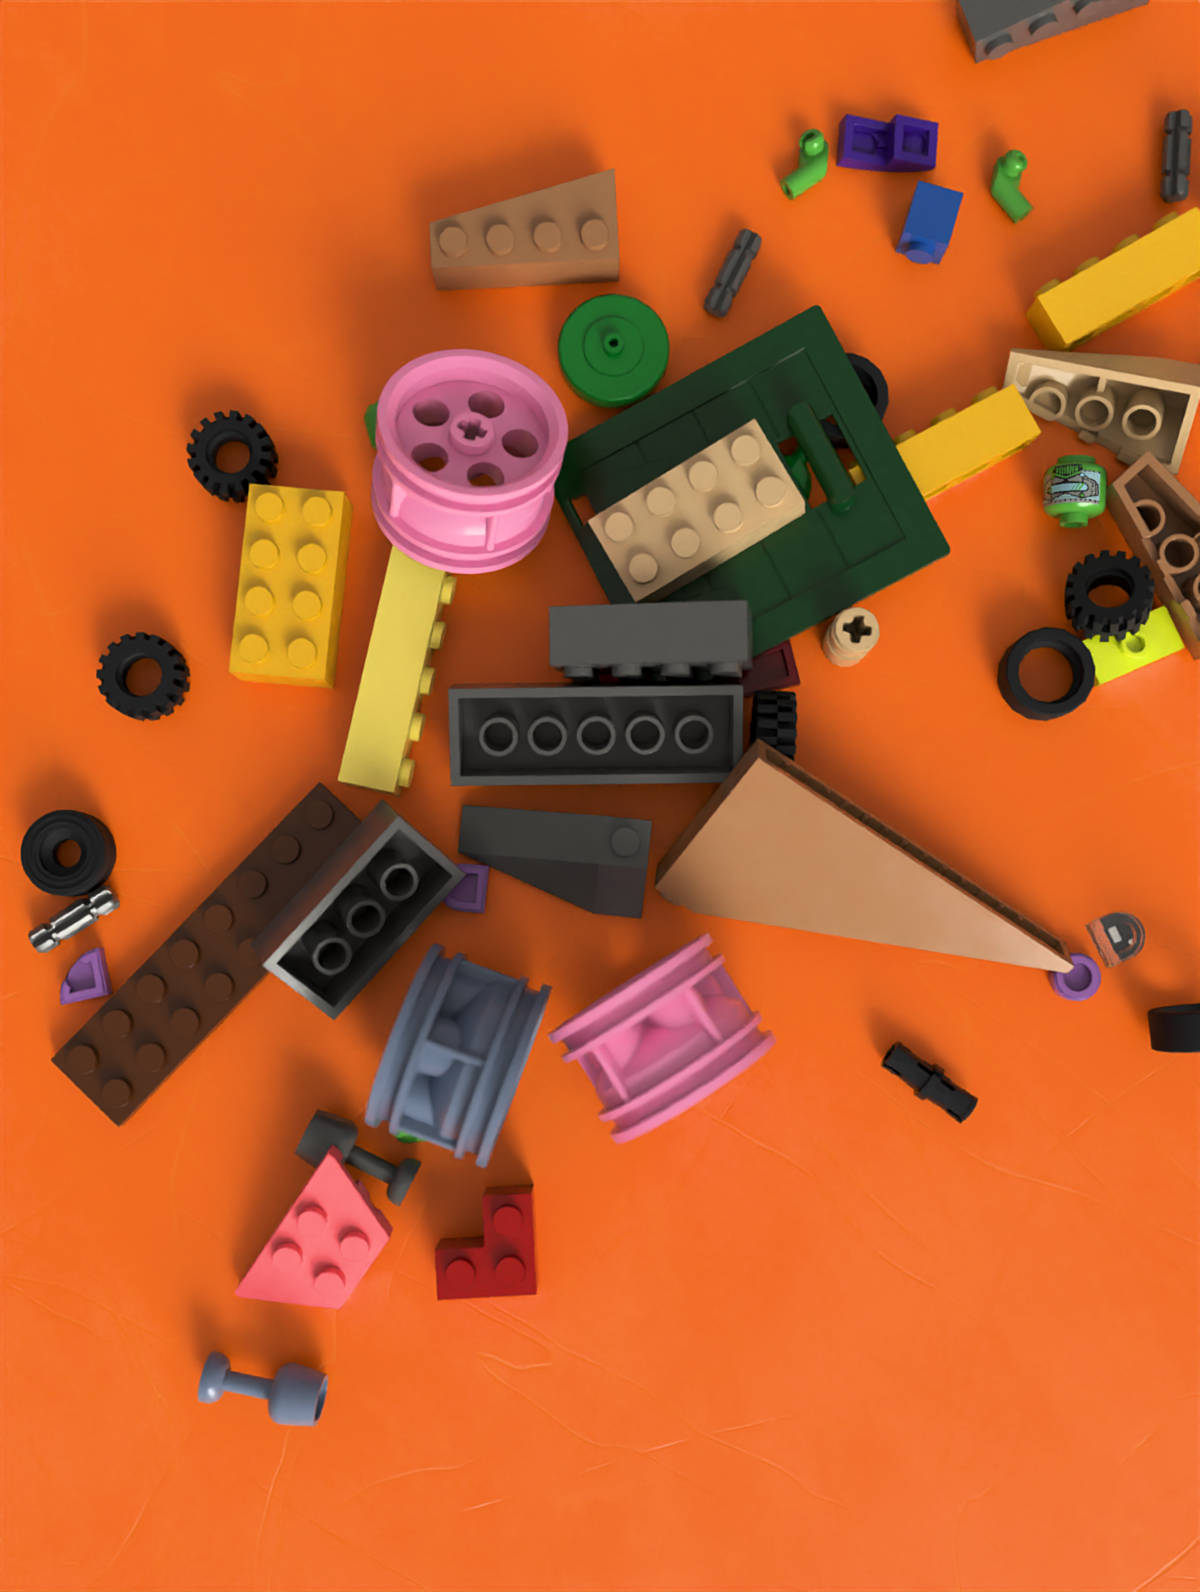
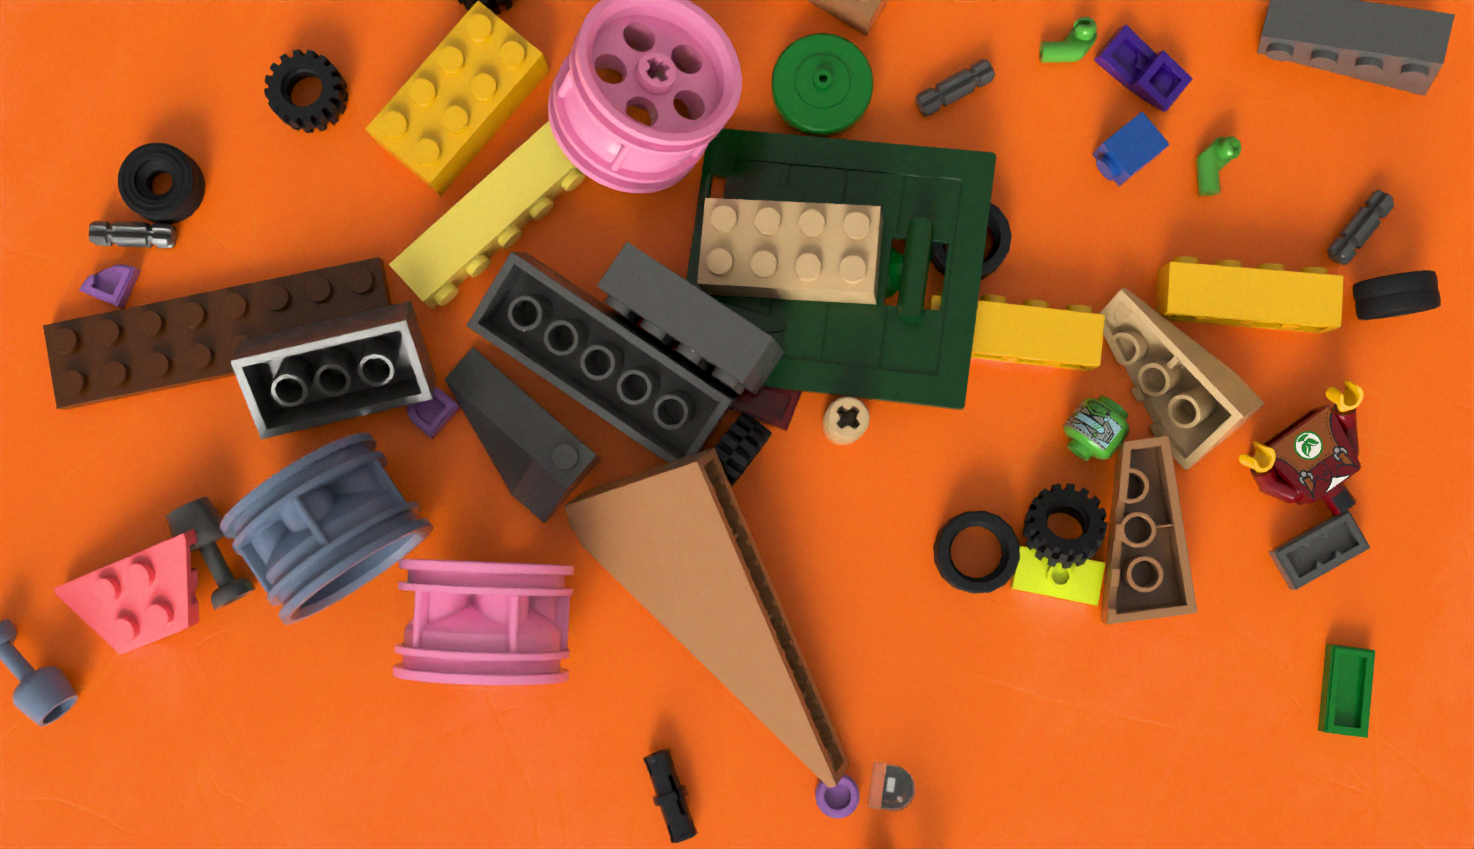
camera: 35 degrees right, 0 degrees up
(501, 1260) = (261, 700): red brick -> none

